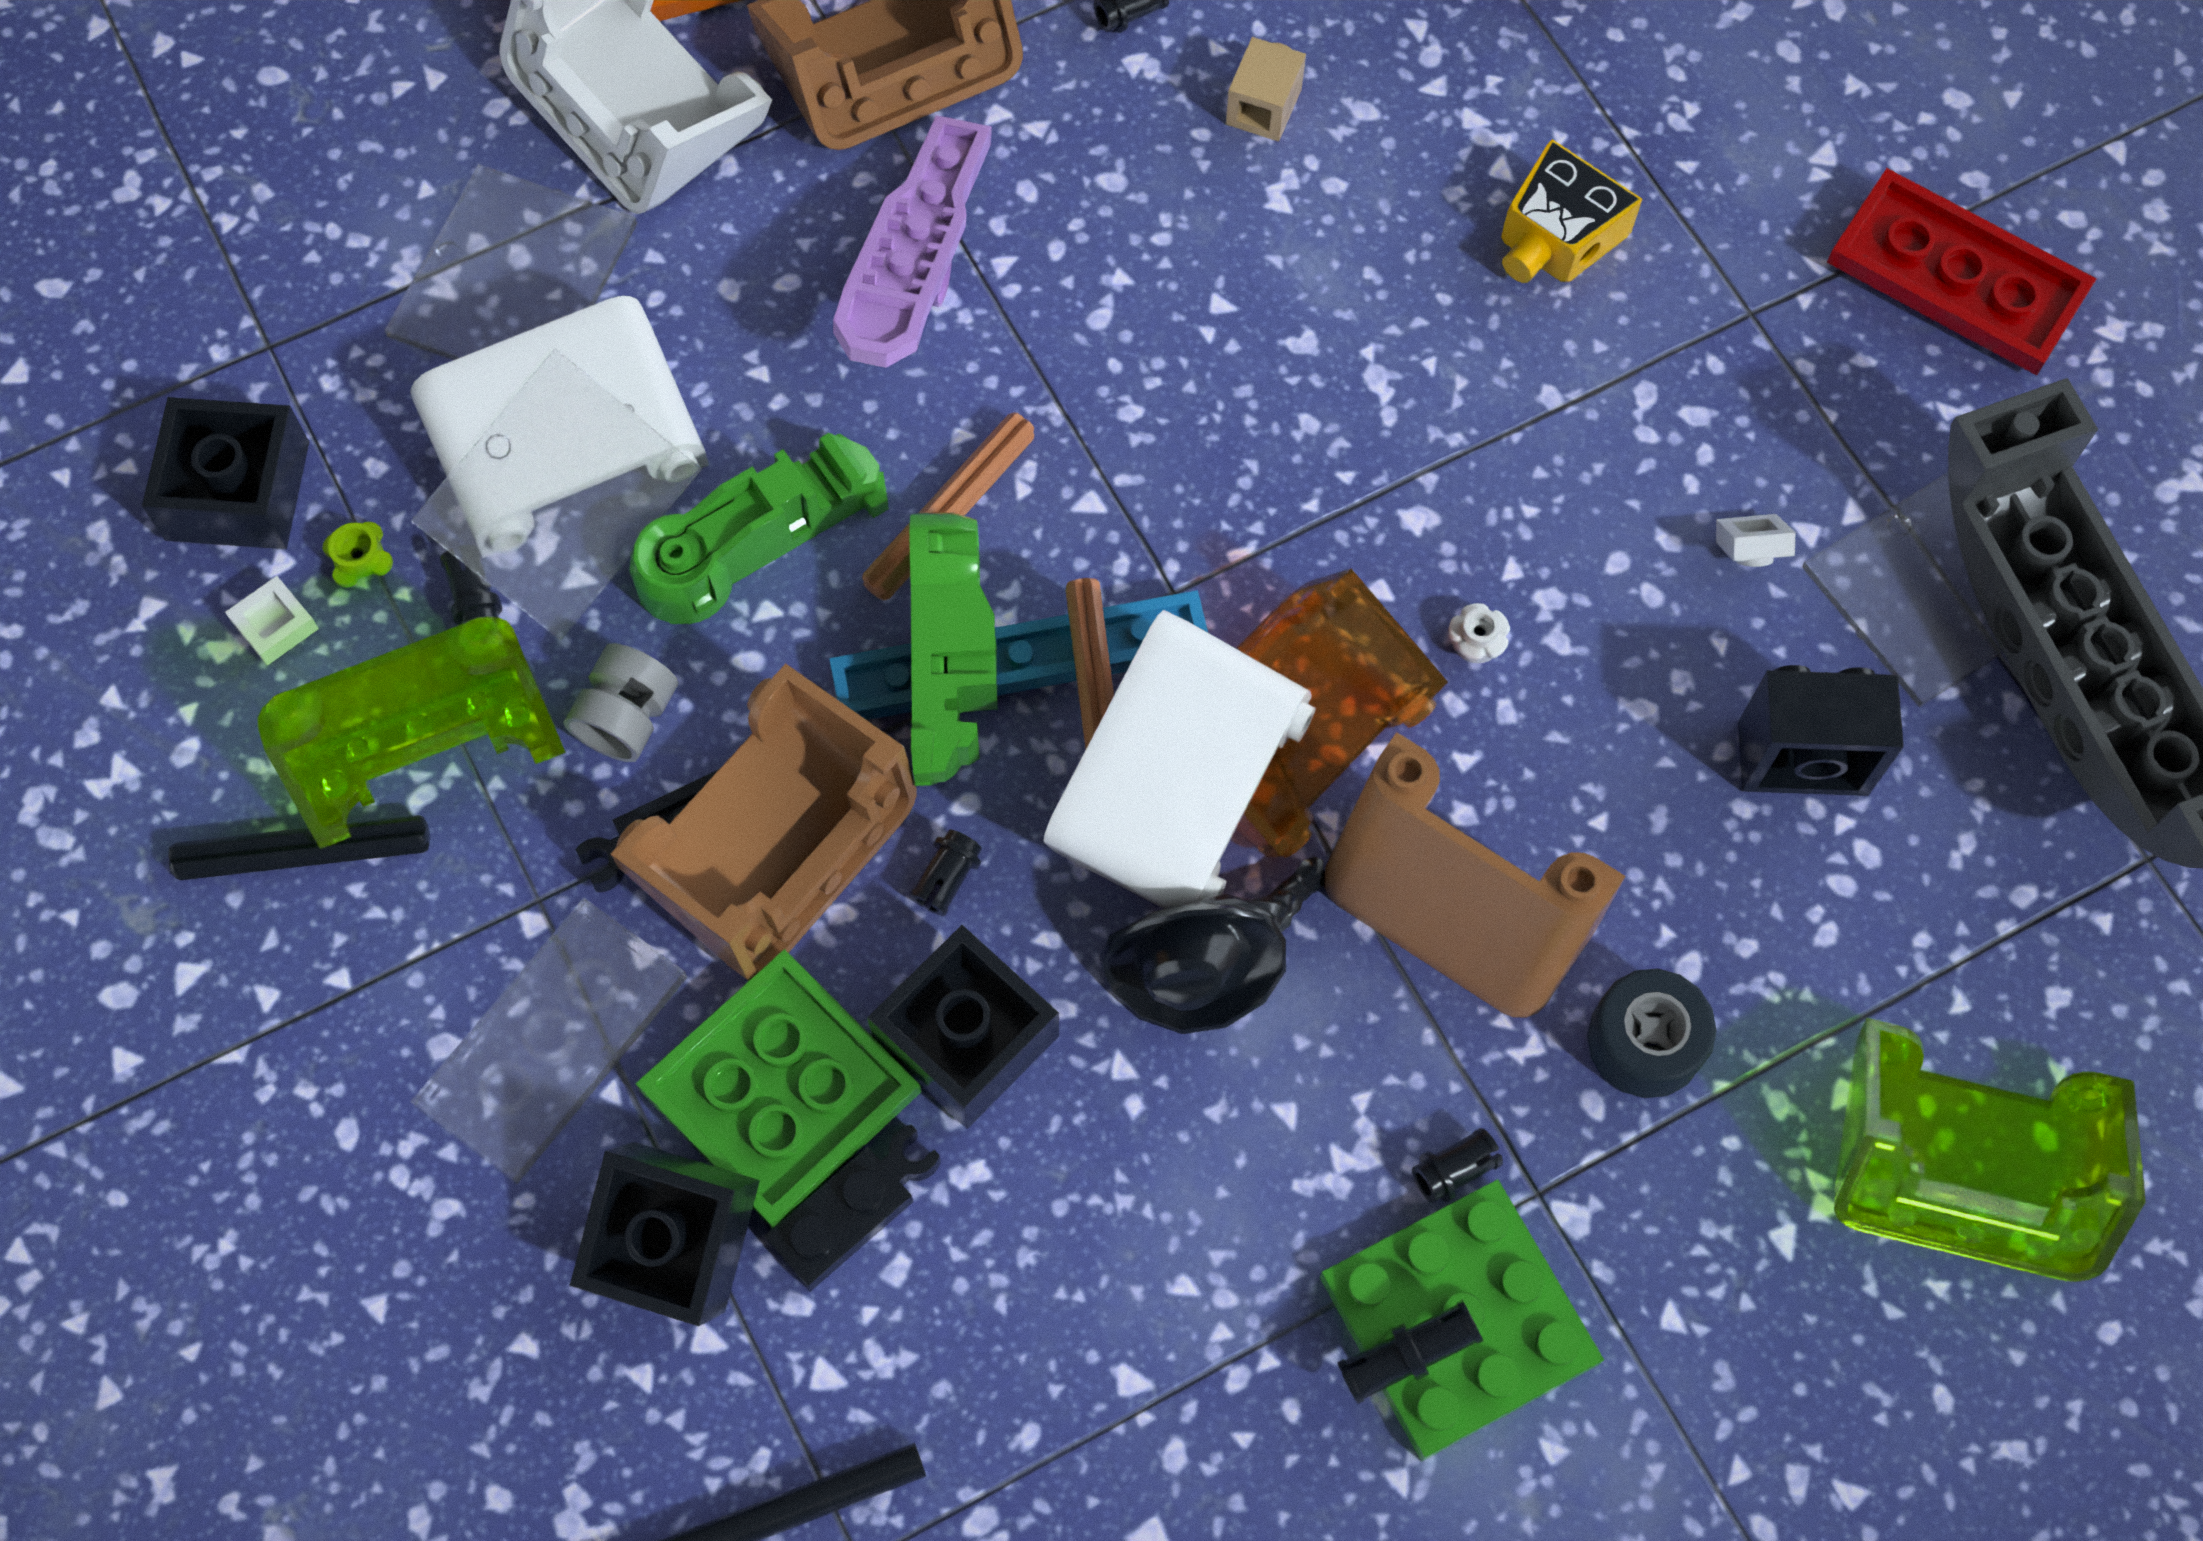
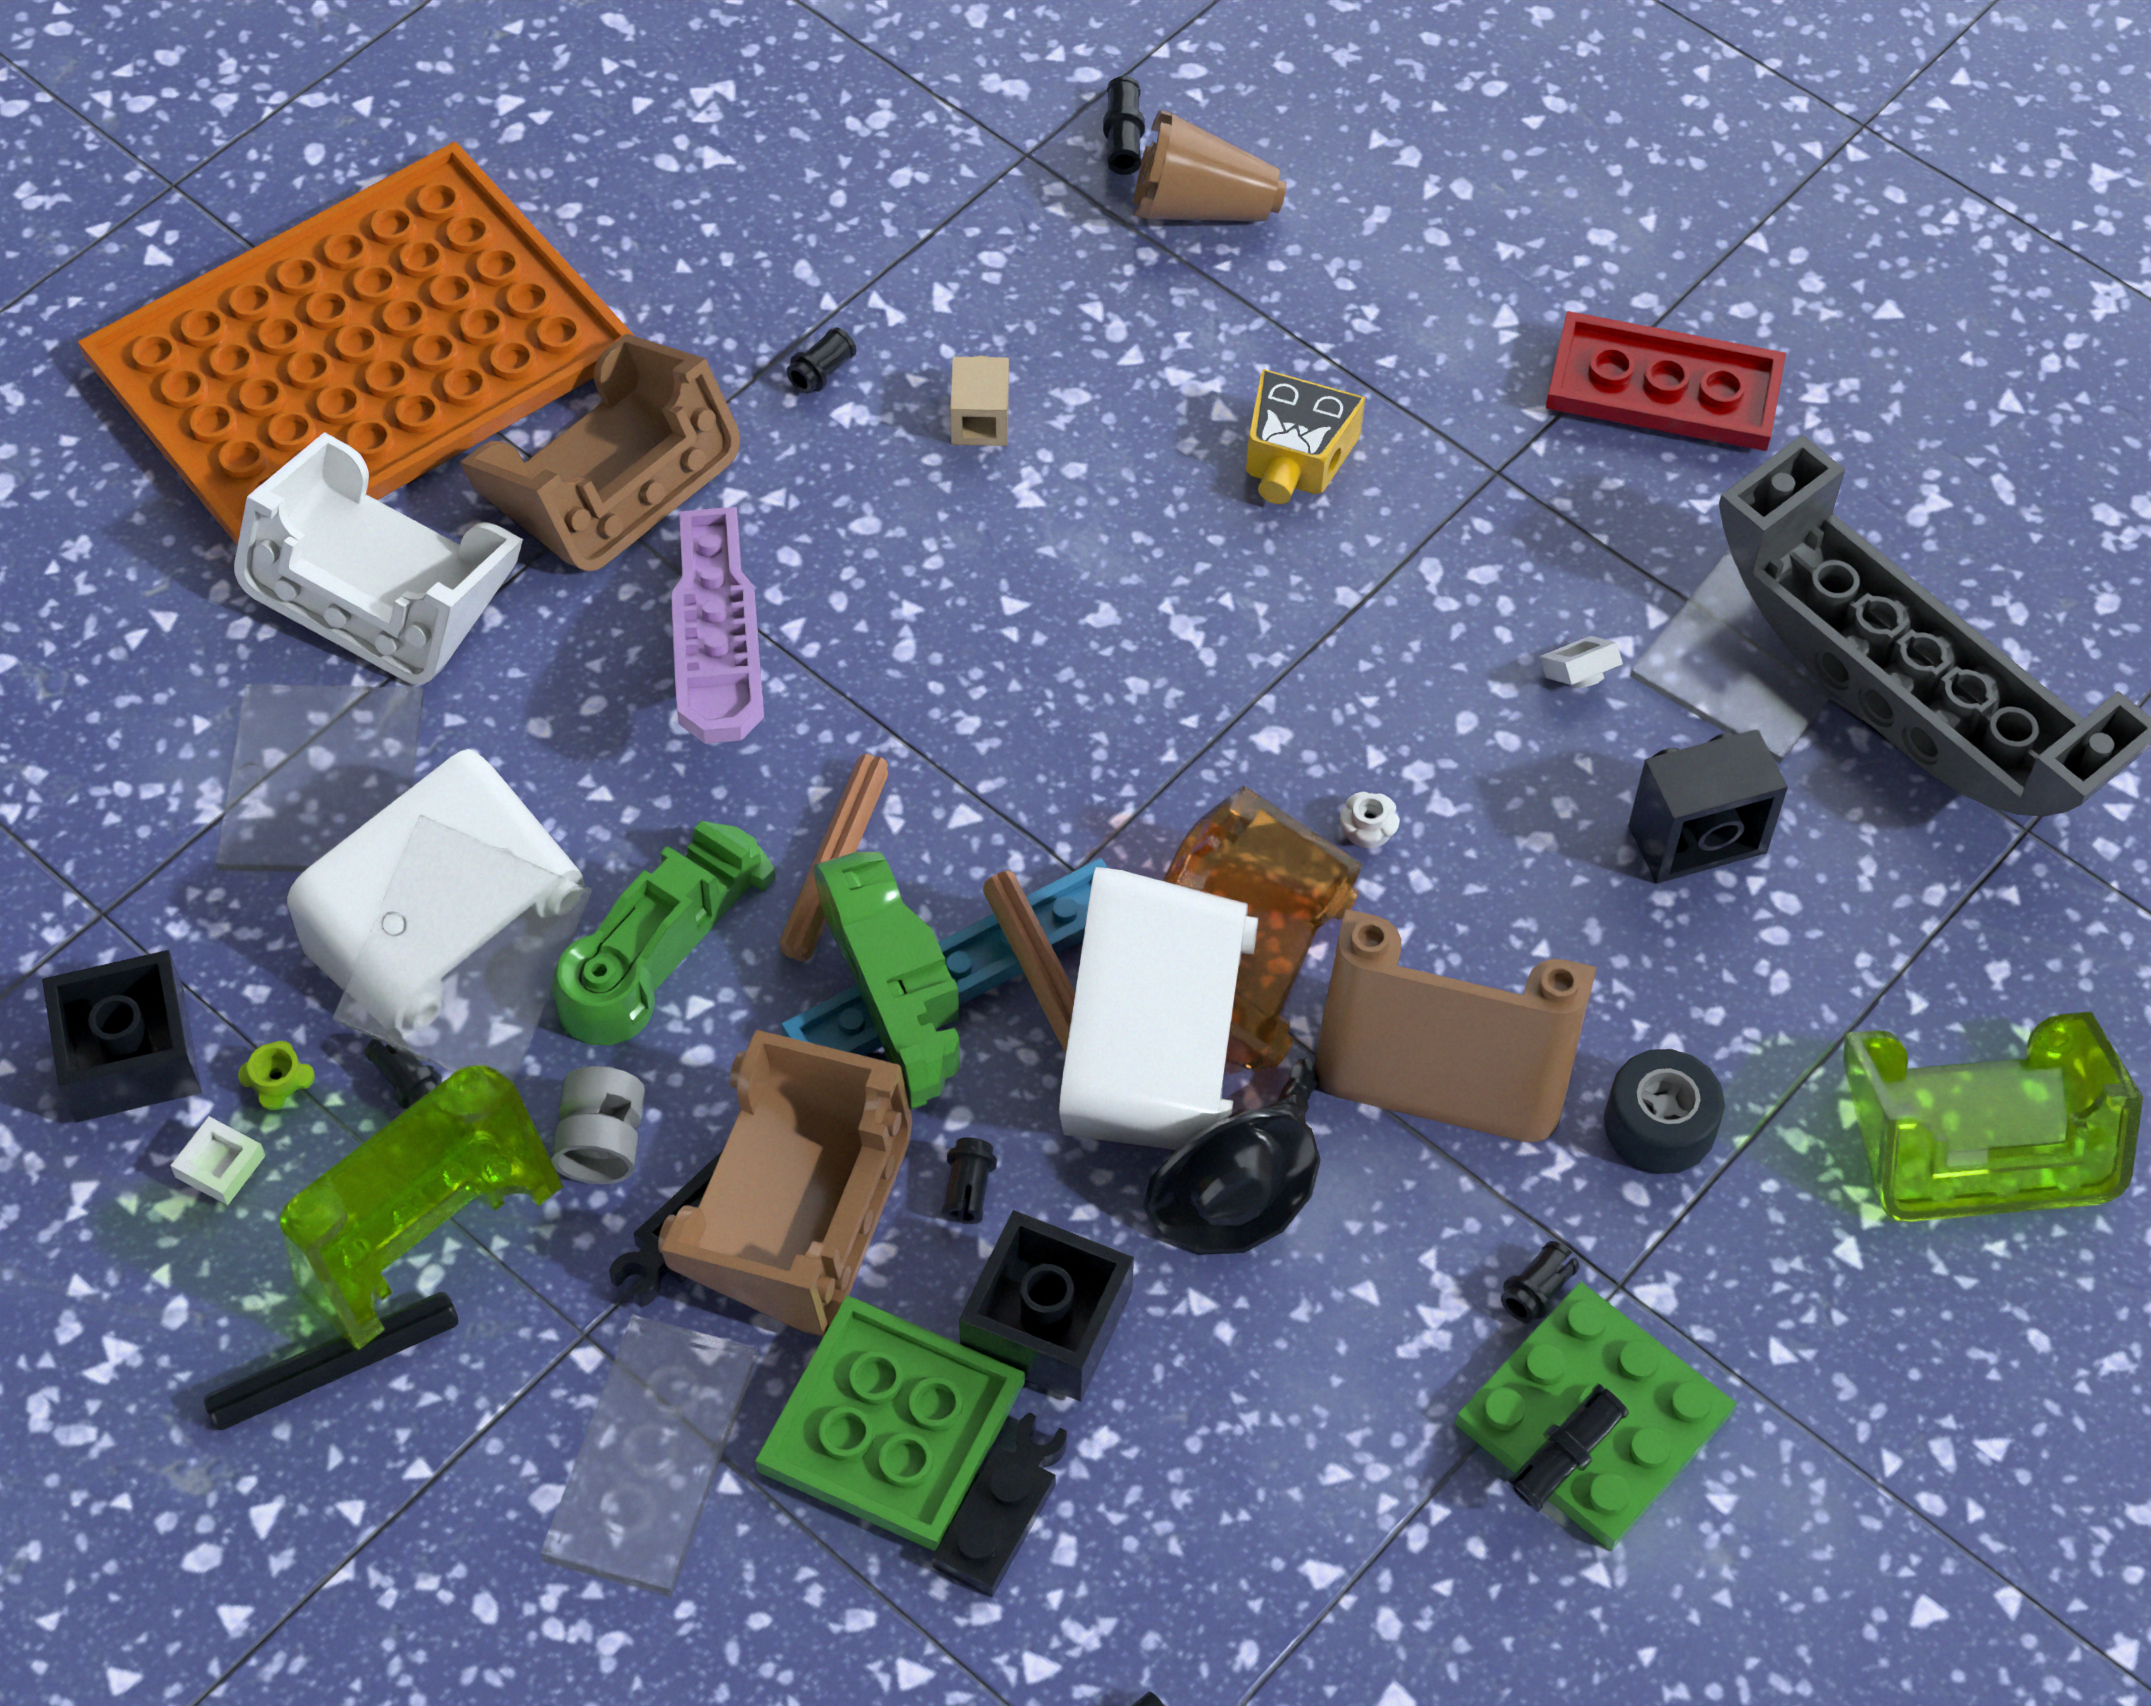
camera: 20 degrees left, 10 degrees down
(664, 1233) = (844, 1577): black brick -> none

